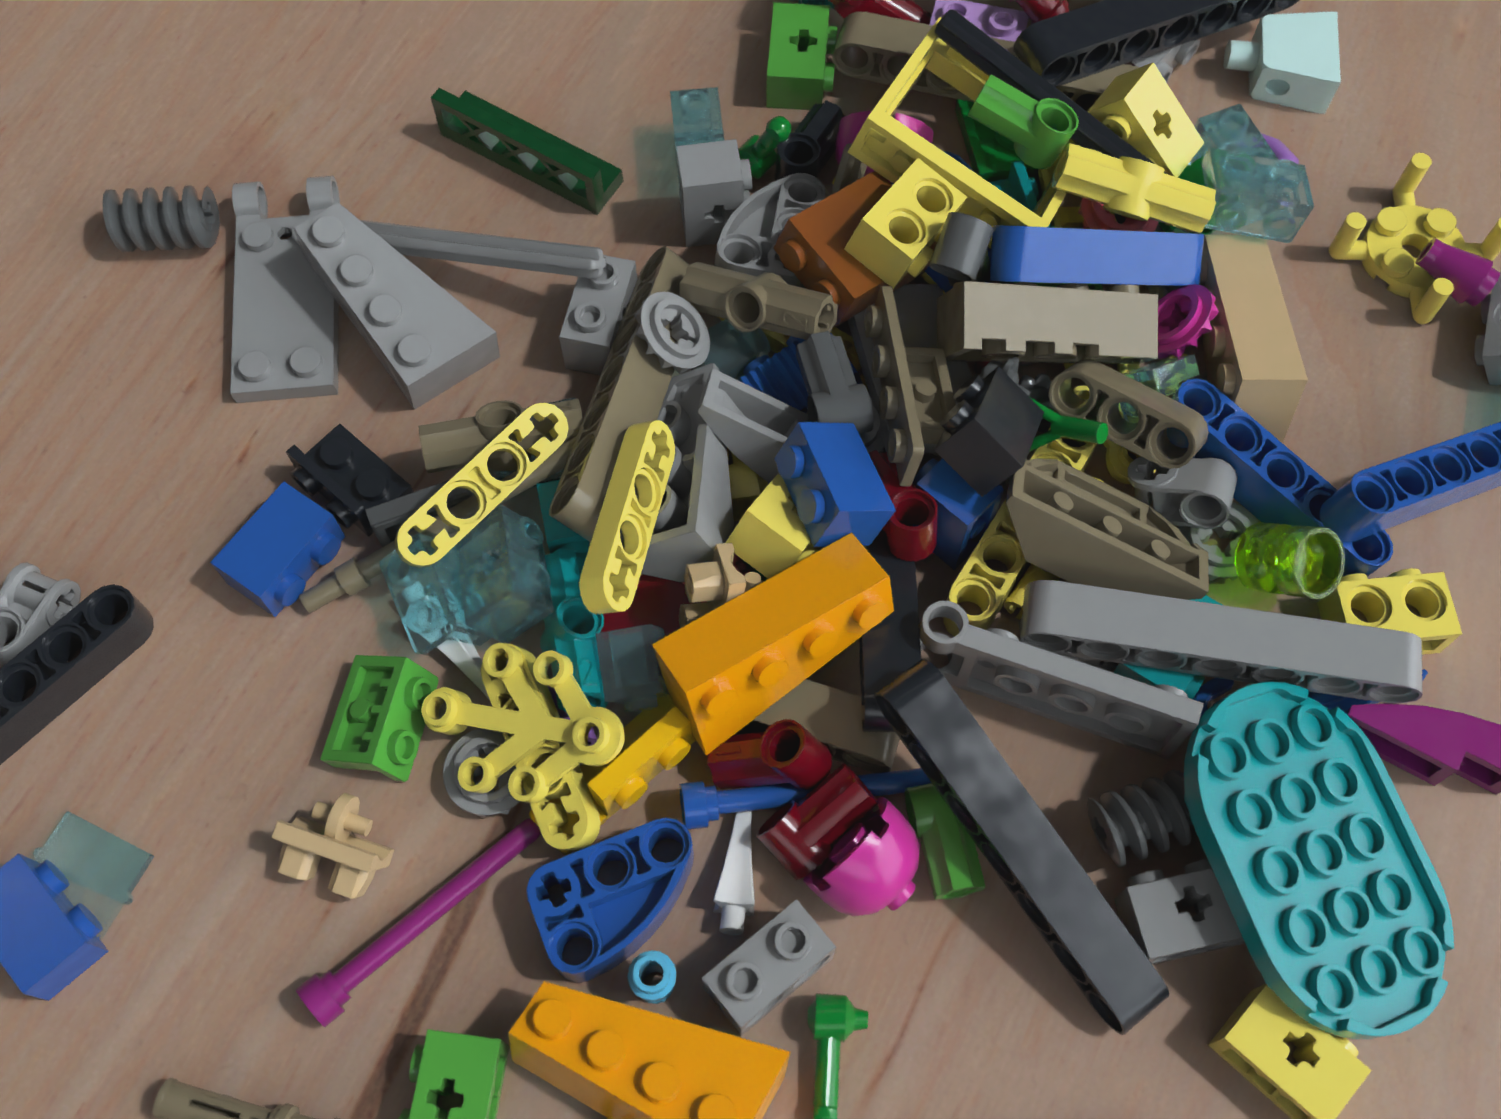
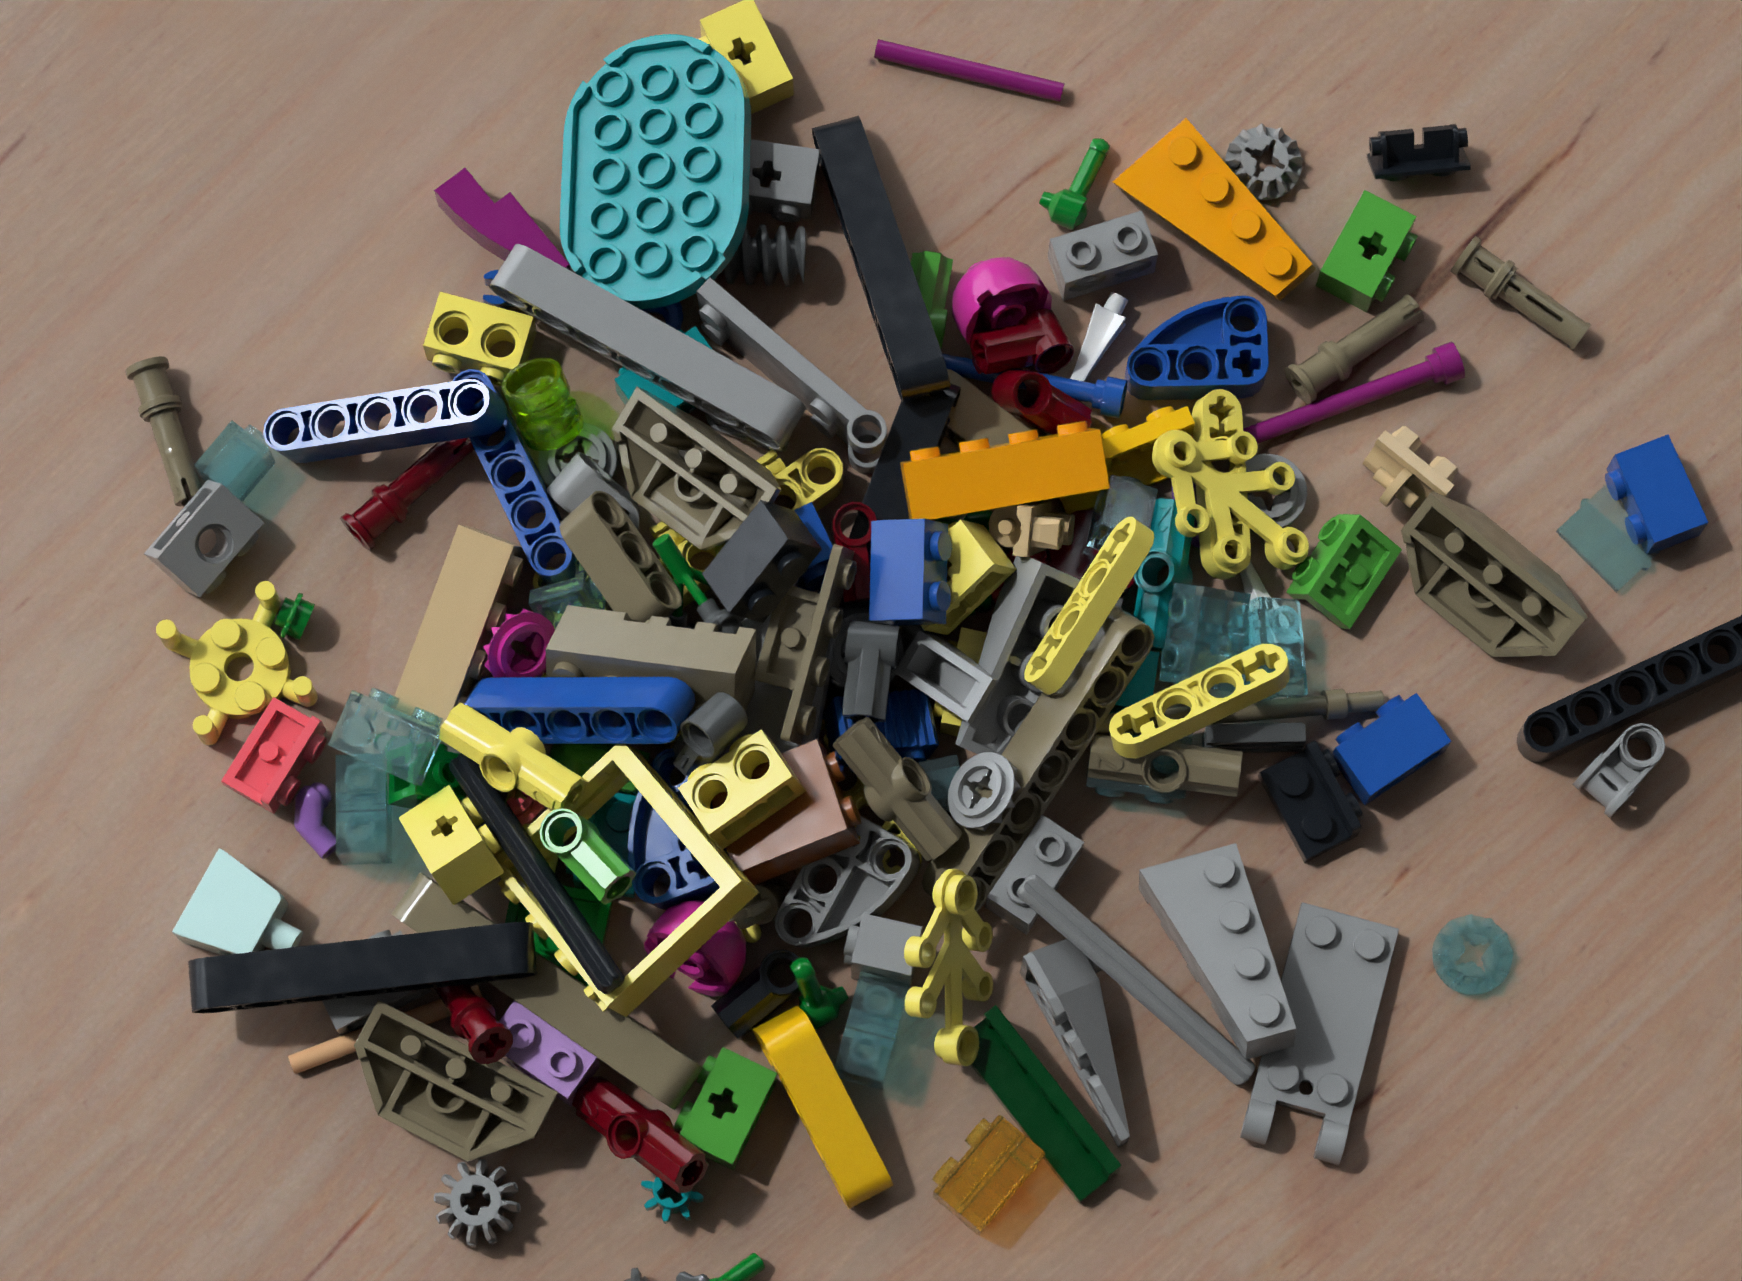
camera: 160 degrees left, 10 degrees up
(147, 420) = (1469, 977): none -> clear light blue gear
(162, 222) = (1423, 1144): dark grey piece -> none
(200, 752) = (1487, 582): none -> dark tan wedge
(454, 951) = (1336, 360): none -> dark tan pin
(511, 199) = (1073, 1005): none -> light grey wedge
(553, 78) = (987, 1173): none -> clear yellow brick
(648, 963) = (1192, 279): medium azure pin -> none
(663, 221) = (955, 903): none -> light yellow plant
(747, 77) = (823, 1106): none -> yellow beam
(1337, 180) = (275, 756): none -> coral bracket
(1375, 425) = (391, 502): none -> dark red pin
(1396, 301) = (294, 616): none -> green plate
(1469, 273) = (233, 605): magenta cone -> none

